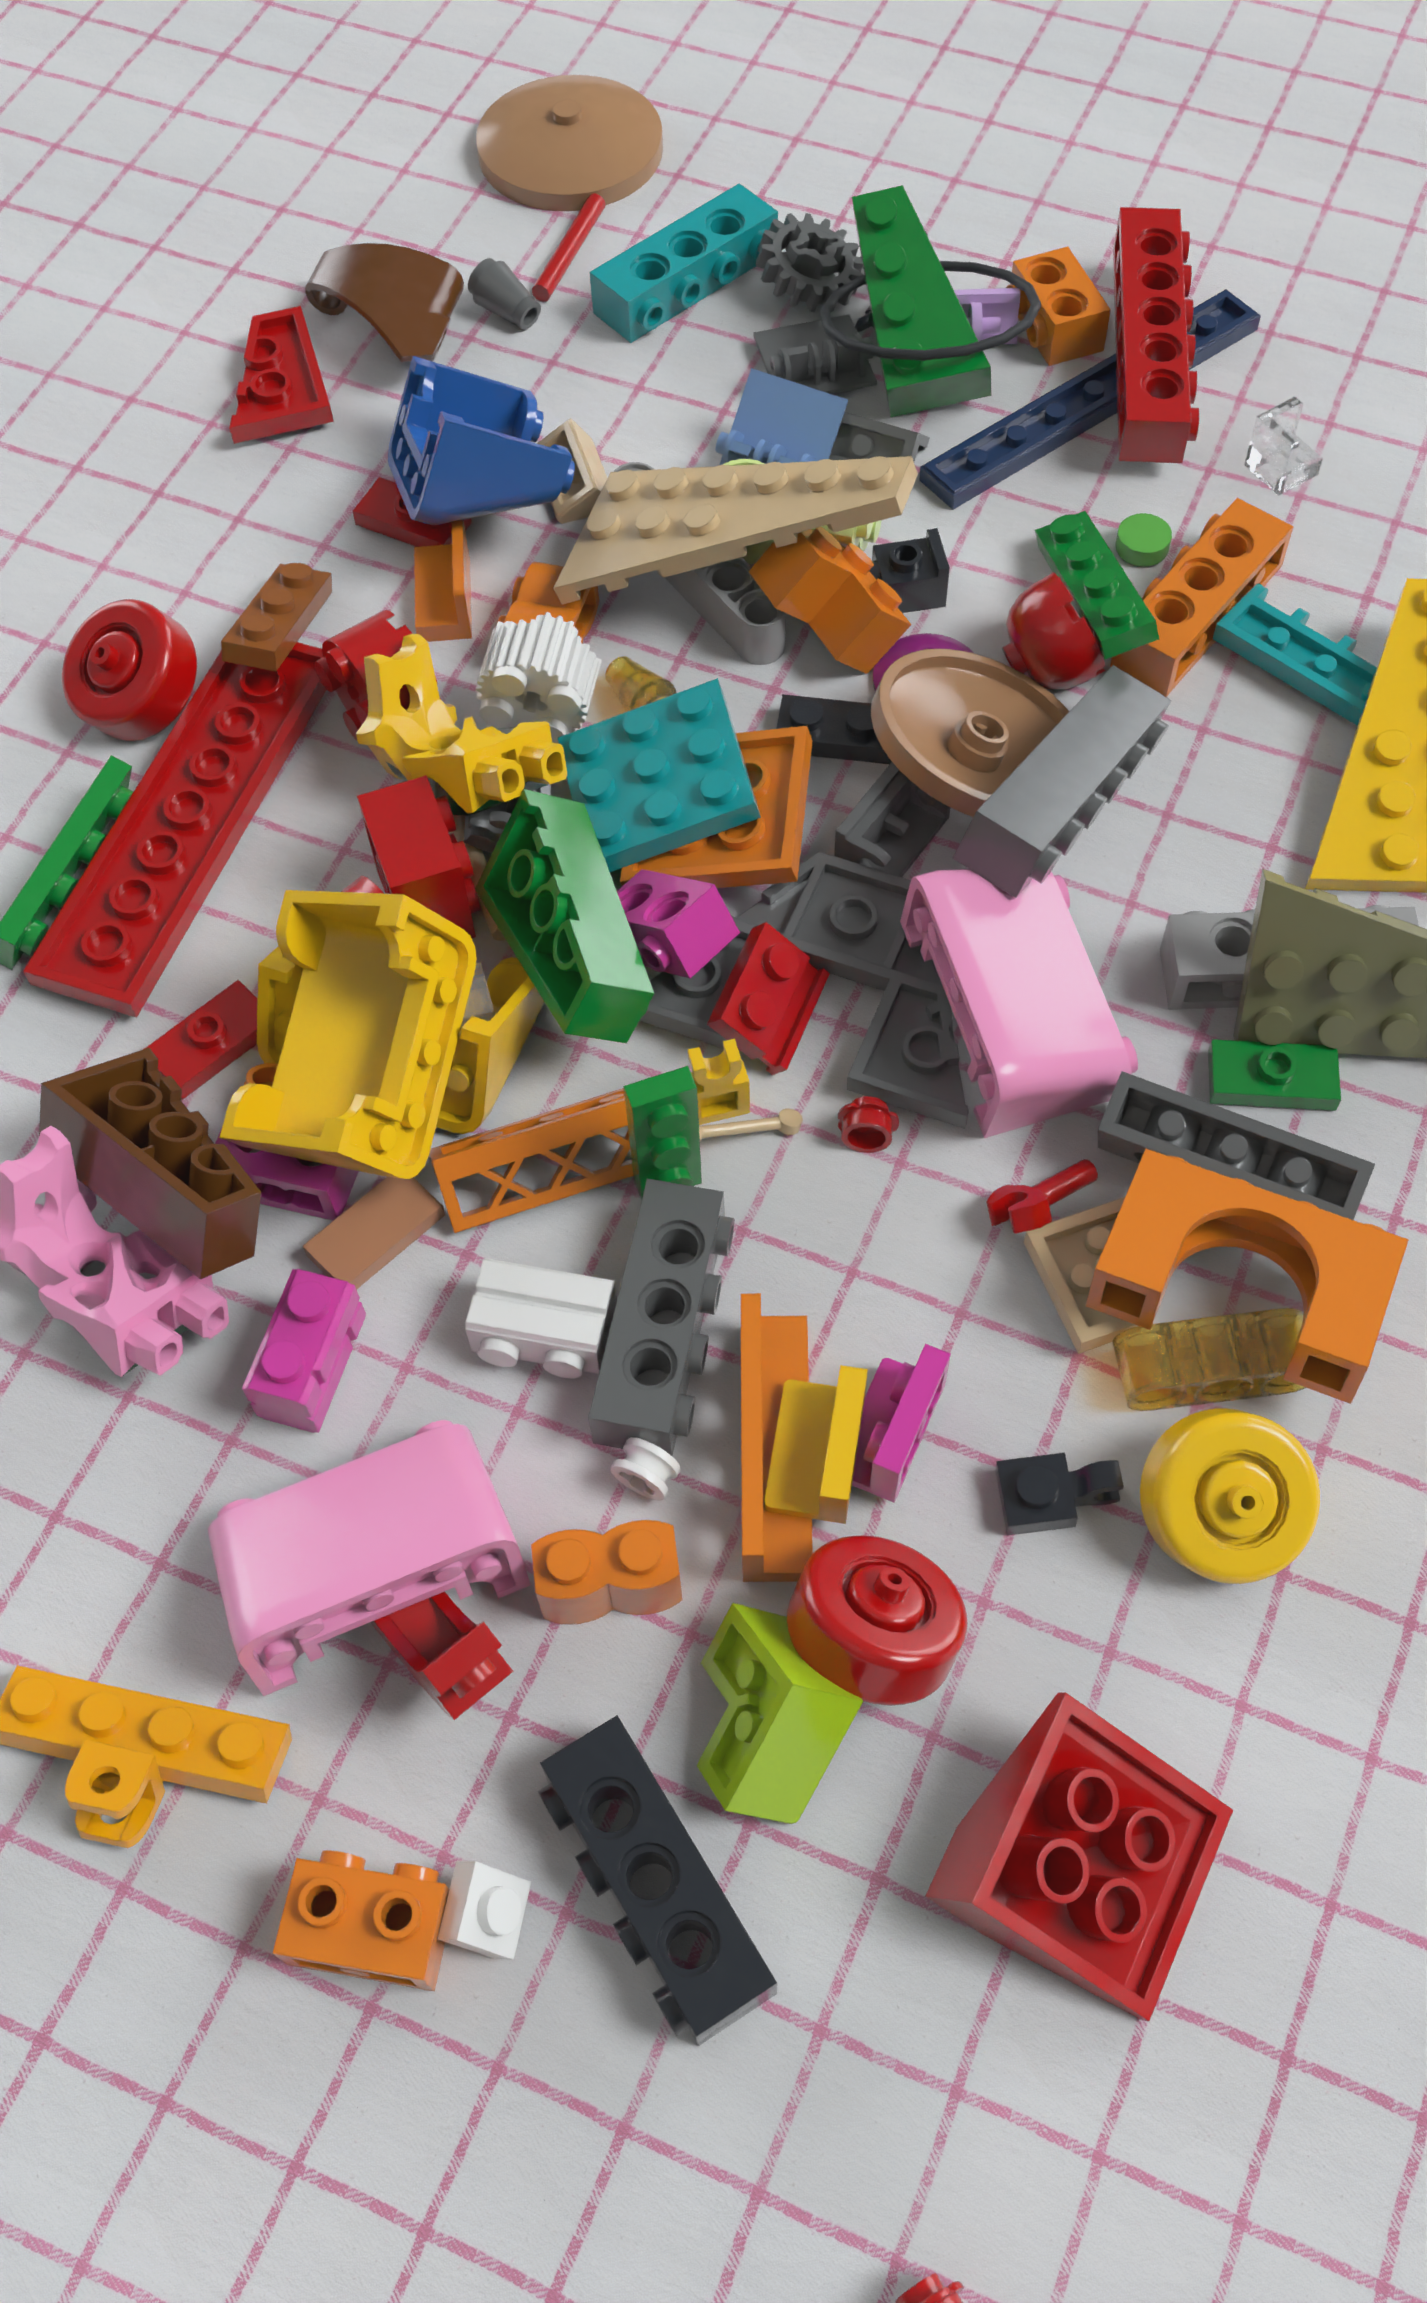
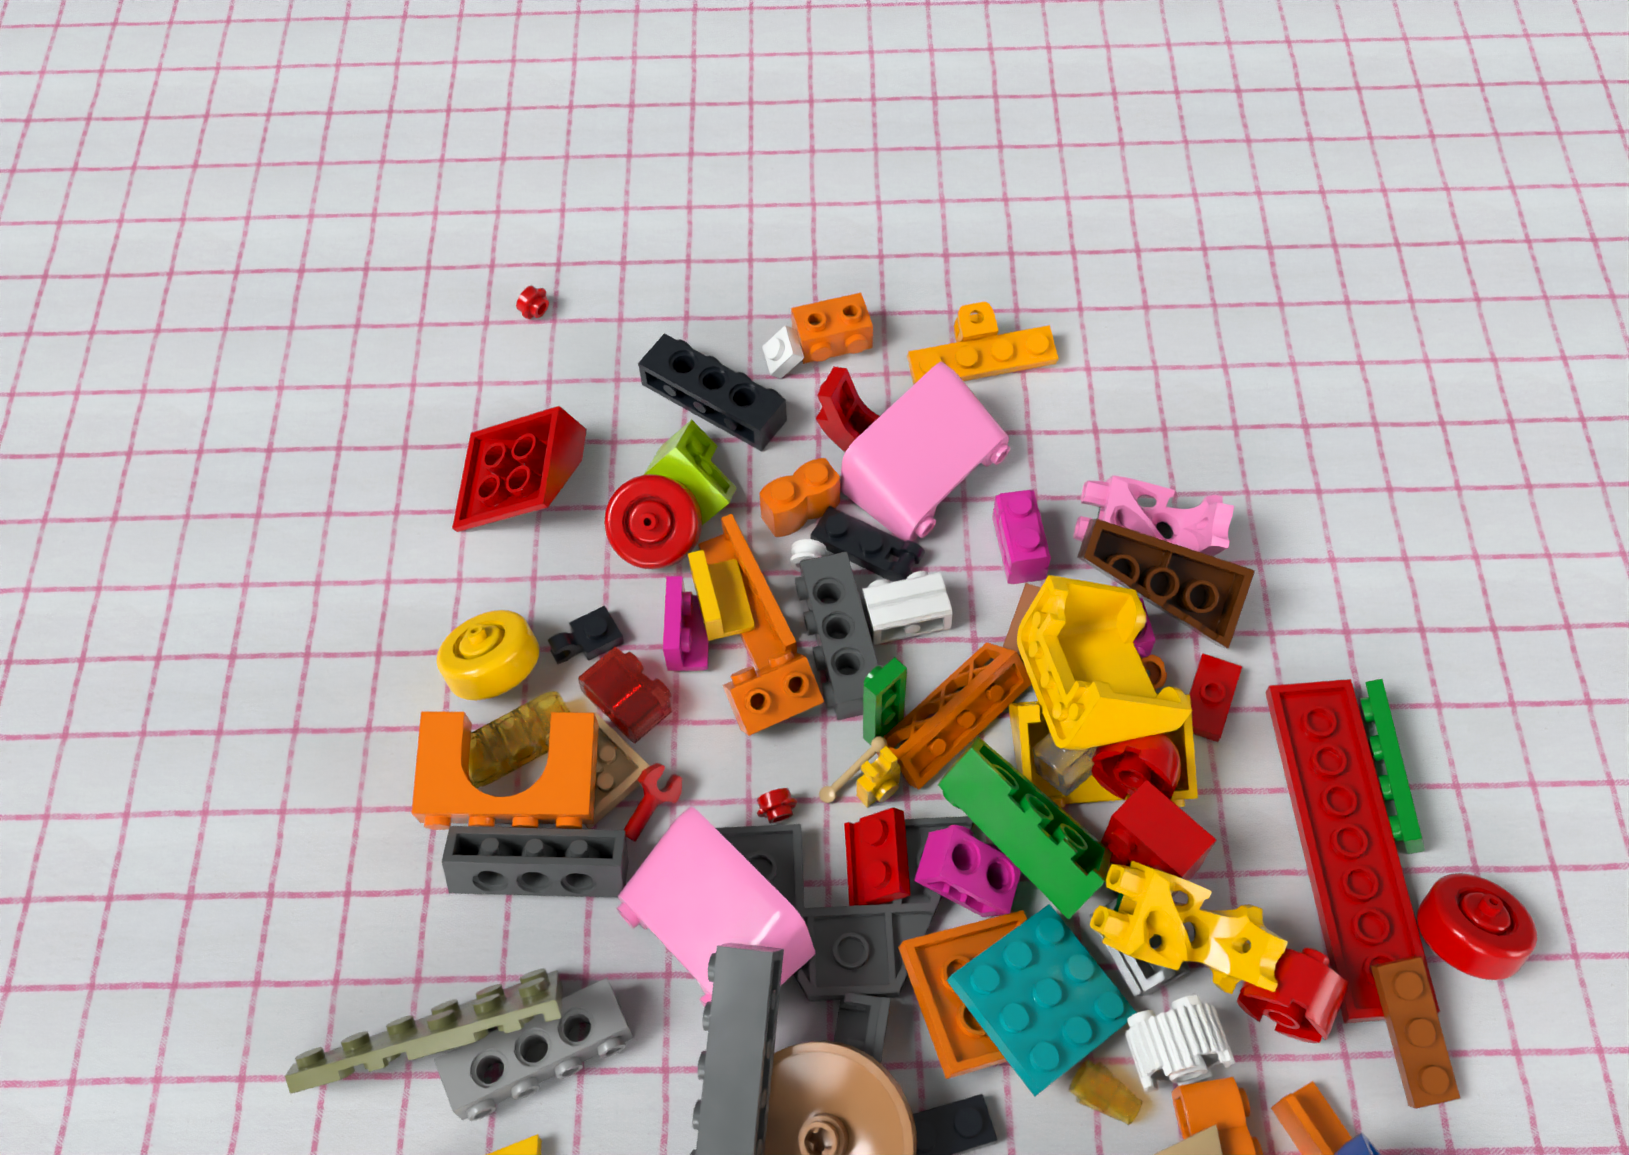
camera: 155 degrees right, 0 degrees up
(542, 1458) = (867, 545): none -> black plate
(808, 1255) = (772, 692): none -> orange brick
(1026, 1359) = (626, 694): none -> clear red brick
(1274, 1075) = (538, 949): green plate -> none

